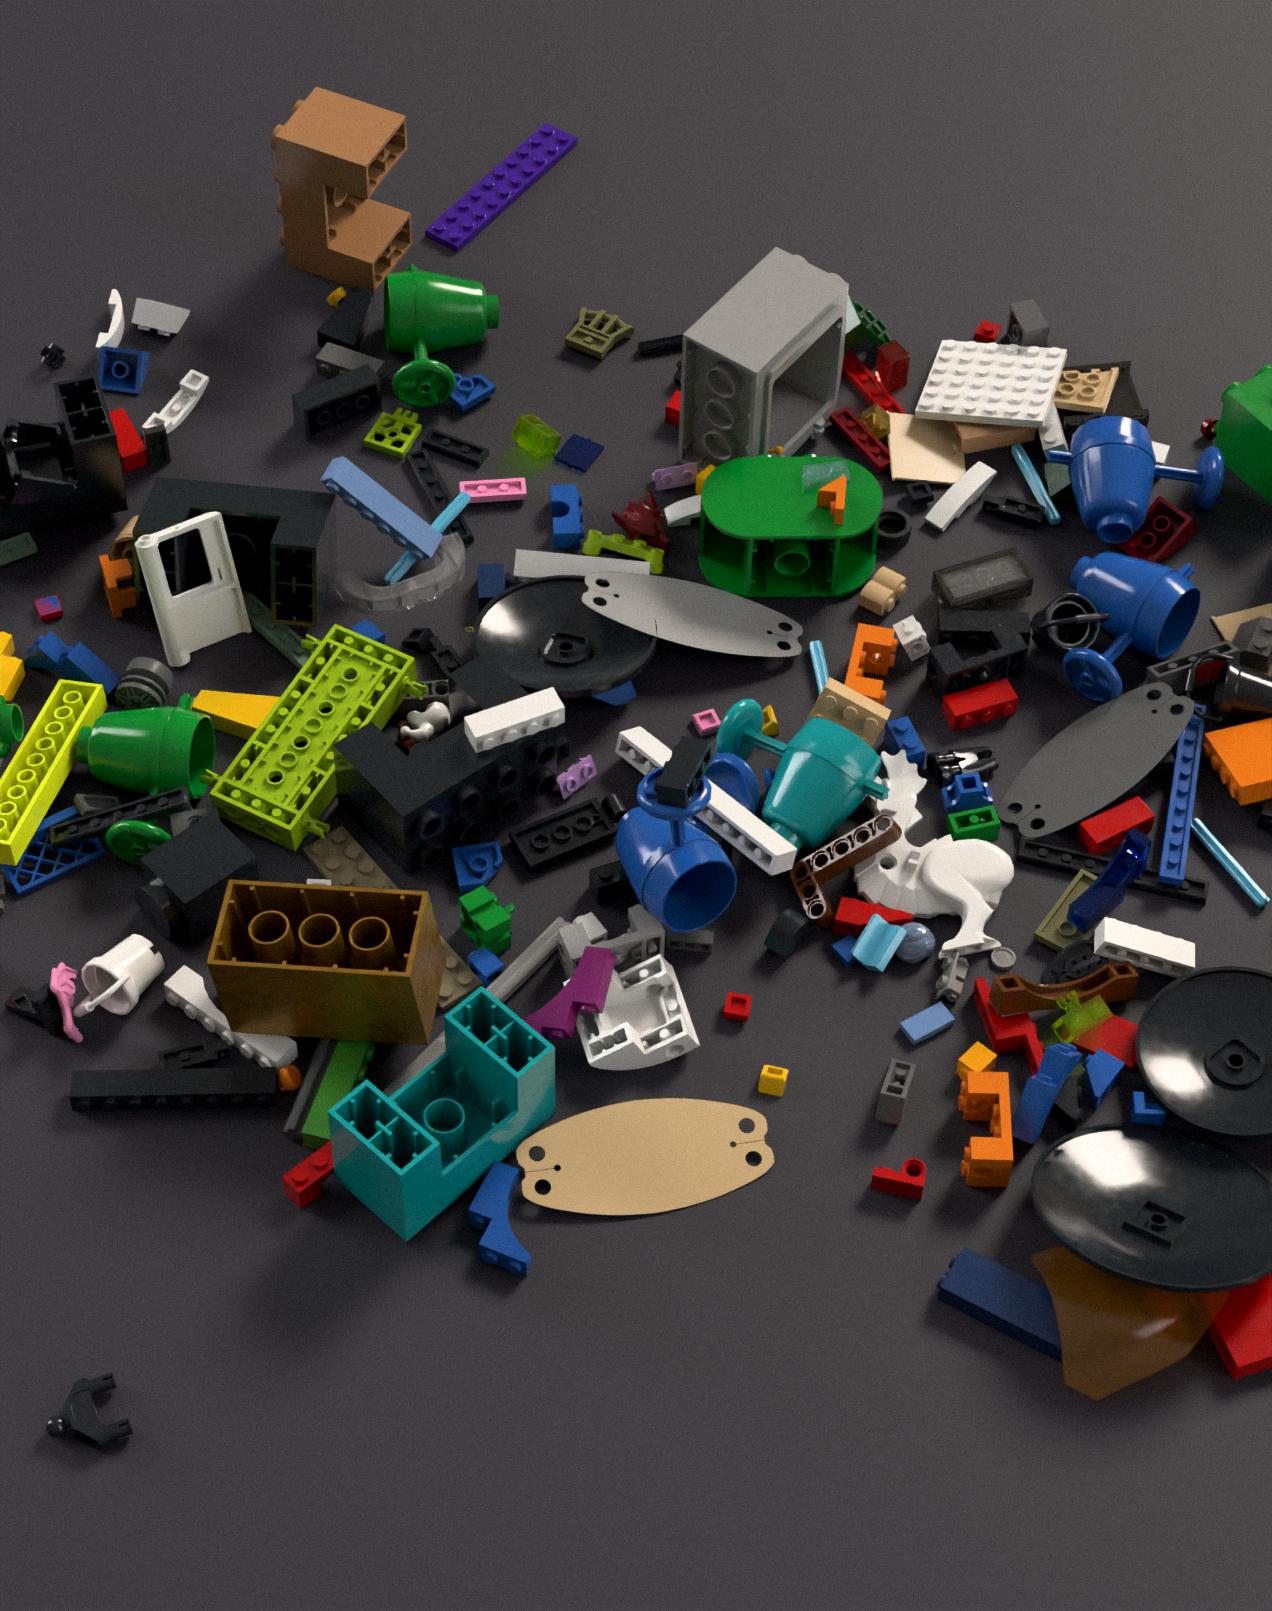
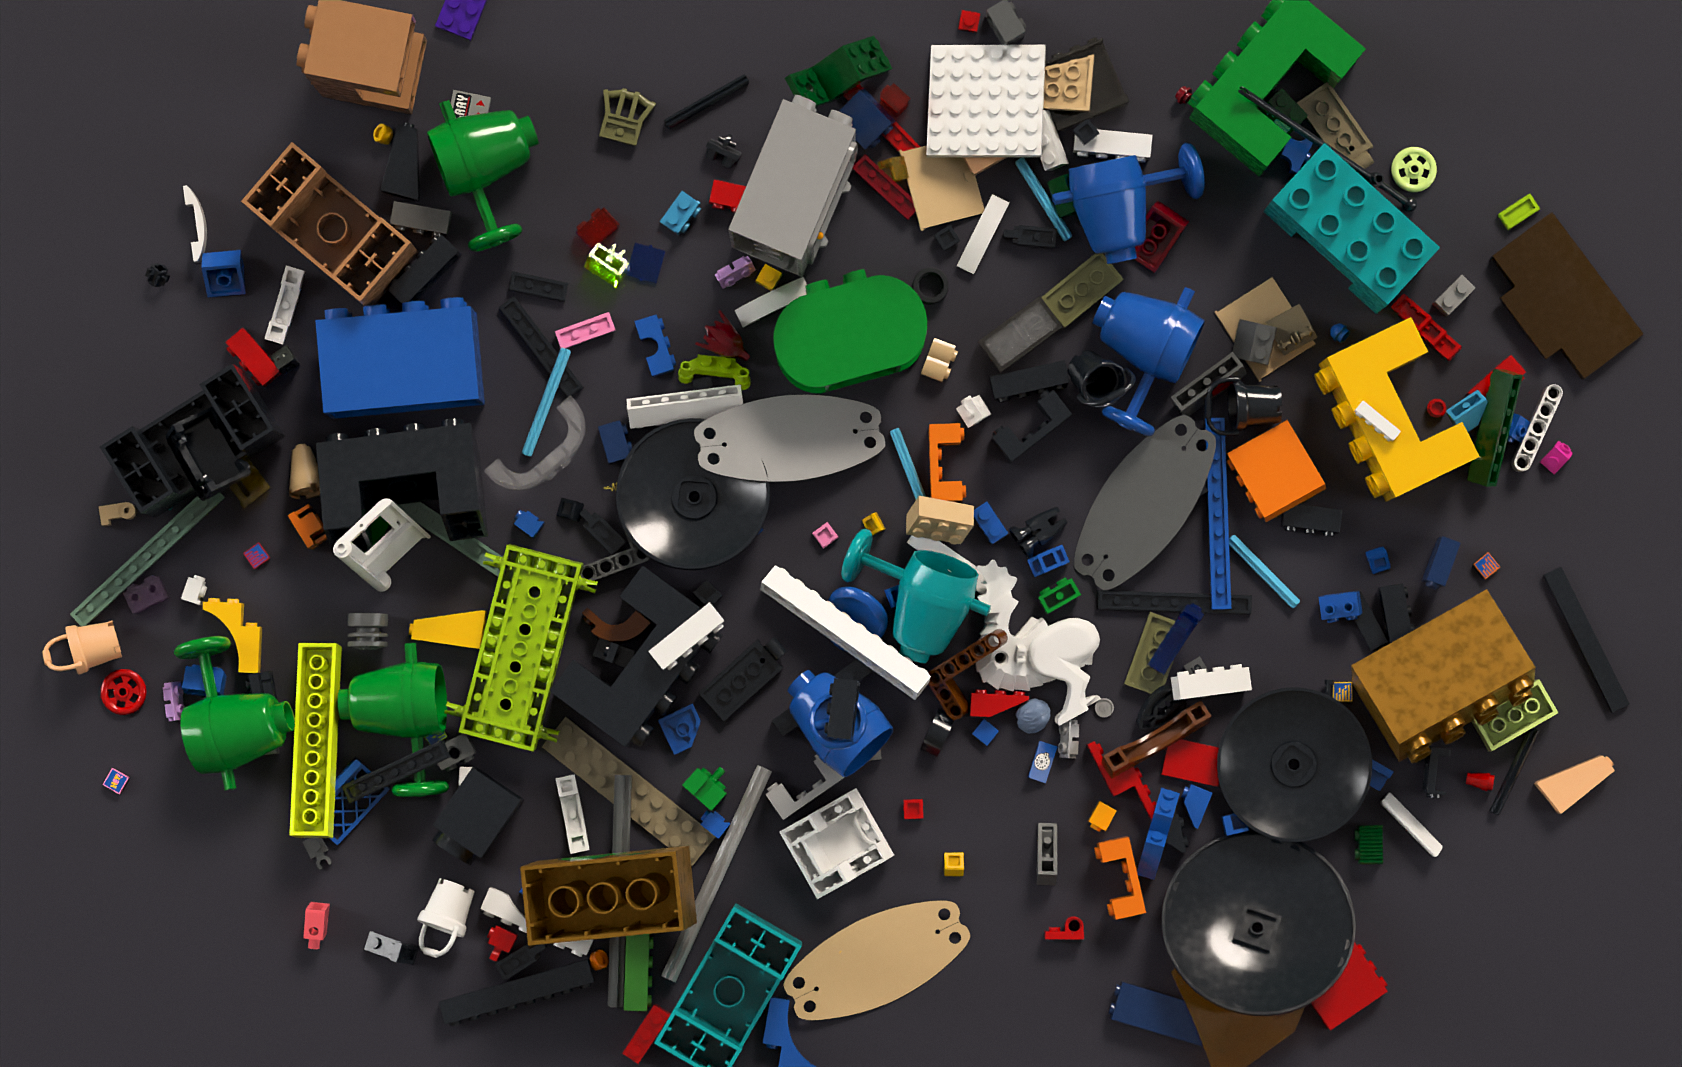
camera: 15 degrees left, 35 degrees up
(64, 990) = (408, 938): bright pink animal -> none
(73, 540) = (254, 483): none -> clear yellow plate
(74, 663) = (300, 620): blue arch -> none
(91, 804) = (372, 753): dark grey tile -> none
(159, 316) = (228, 198): white slope -> none
(176, 1029) = (502, 940): none -> red brick
(244, 327) = (330, 226): none -> medium nougat brick
(278, 437) = (399, 359): none -> blue brick
(381, 508) = (508, 416): medium blue brick -> none
(398, 422) = (483, 267): lime piece -> none
(428, 723) = (606, 604): white piece -> none
(470, 391) = (530, 216): blue plate -> none
(542, 405) = (597, 228): none -> clear red brick
(576, 776) = (739, 613): lavender hinge -> none
(583, 994) = (766, 887): magenta arch -> none
(593, 927) = (784, 771): white brick -> none
(631, 419) = (680, 213): none -> dark azure bracket
(824, 473) = (873, 301): clear light blue plate -> none
(834, 497) = (888, 327): orange slope -> none
(859, 377) = (868, 118): none -> dark blue brick
(877, 943) = (1008, 729): medium azure panel -> none
(912, 993) = (1042, 761): none -> blue slope
(927, 1023) = (1058, 784): medium blue tile -> none
(979, 704) = (1041, 464): red brick -> none
(1054, 564) = (1082, 289): none -> olive plate
(1080, 1018) = (1174, 763): clear neon green brick -> none
(1111, 826) = (1170, 560): red brick -> none

